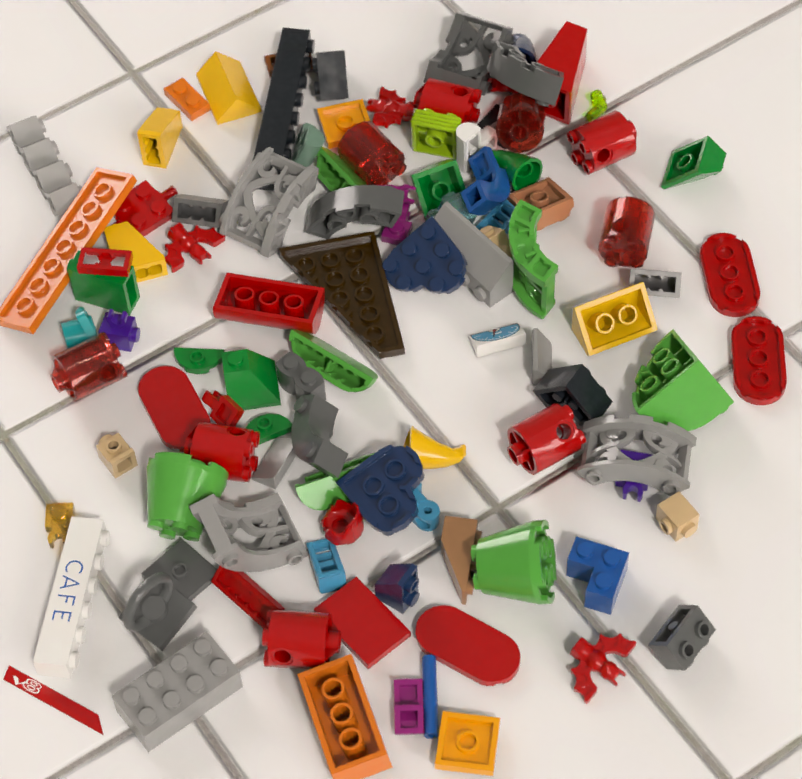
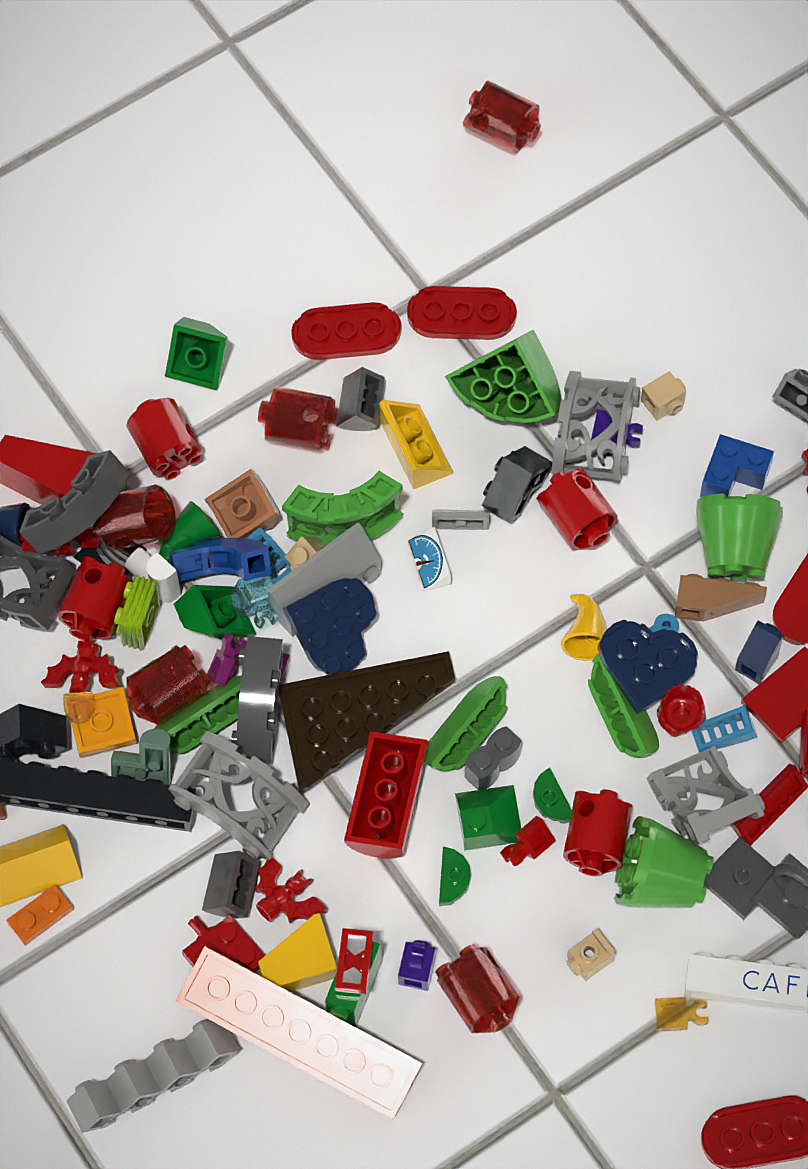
camera: 90 degrees left, 10 degrees up
(79, 329) = (422, 1006): teal piece -> none
(159, 136) = (111, 935): yellow slope -> none
(171, 404) = (522, 898): red tile -> none
(275, 463) = (592, 779): light grey slope -> none
(312, 433) = (581, 740): dark grey brick -> none
(354, 103) = (78, 706): none -> clear yellow tile
(599, 105) = (90, 444): clear neon green arm -> none

